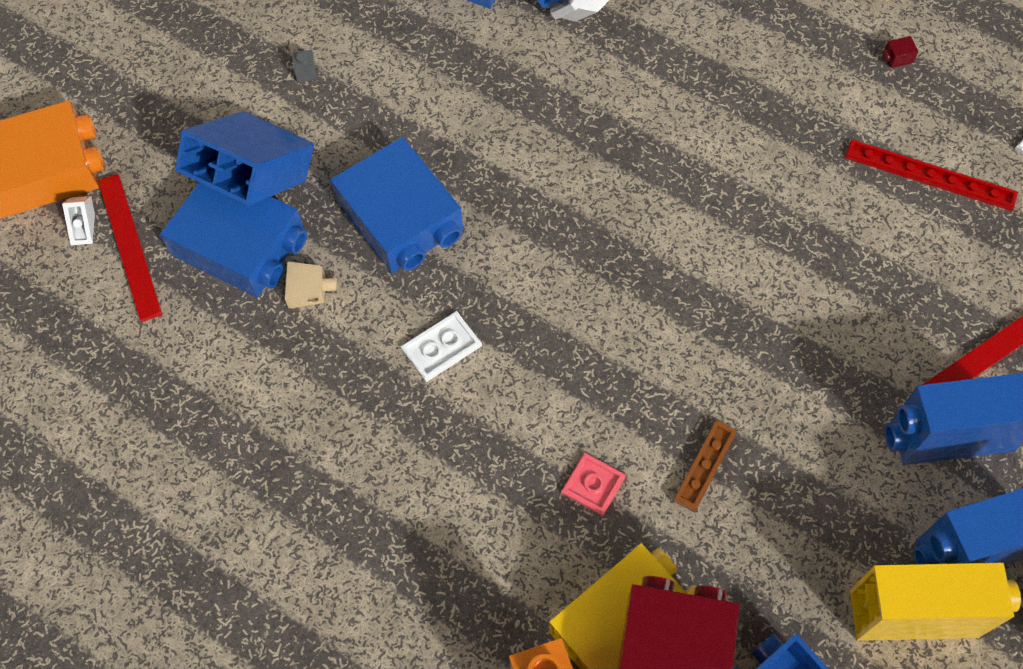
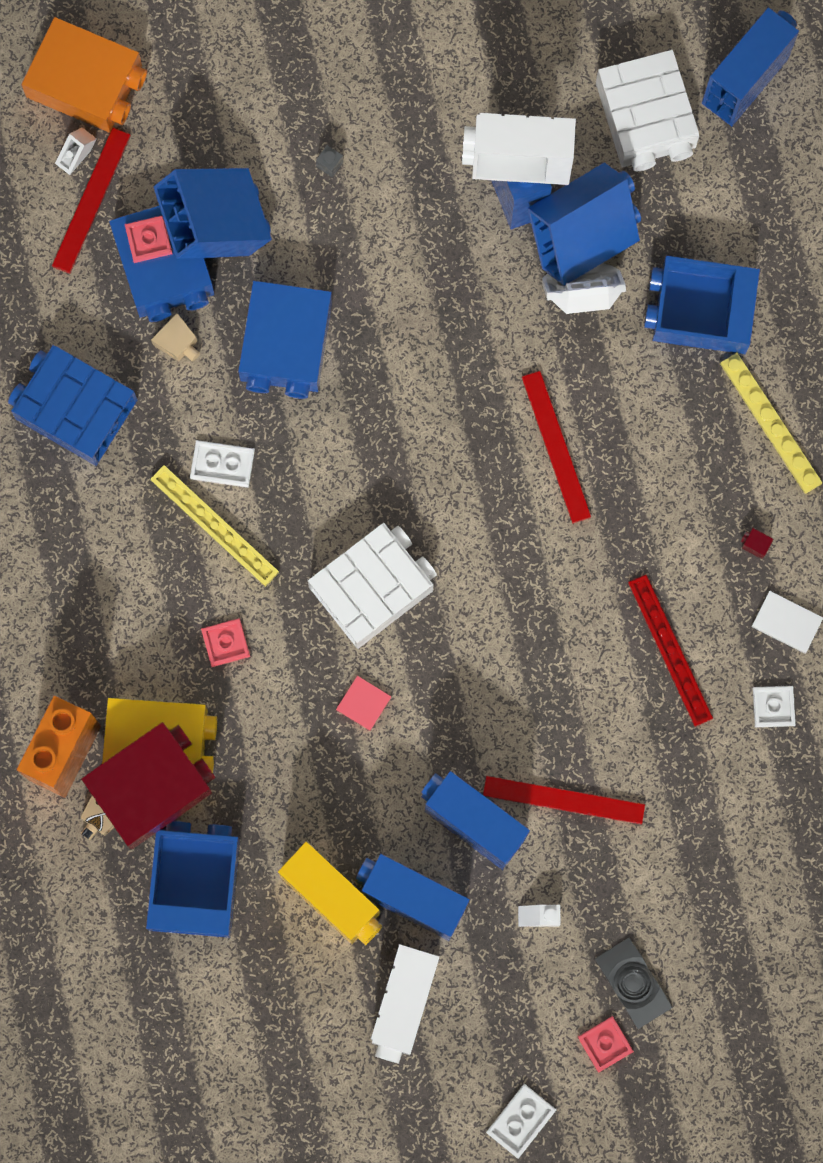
camera: 40 degrees right, 15 degrees up
(208, 219) = (148, 239): none -> coral tile
(262, 406) = (72, 404): none -> blue brick
(485, 398) = (214, 526): none -> light yellow plate
(667, 323) = (373, 584): none -> white brick
(687, 114) = (556, 447): none -> red tile
(705, 466) = (303, 696): dark orange plate -> none
(758, 425) = (363, 703): none -> coral tile
(982, 85) = (787, 622): none -> white tile

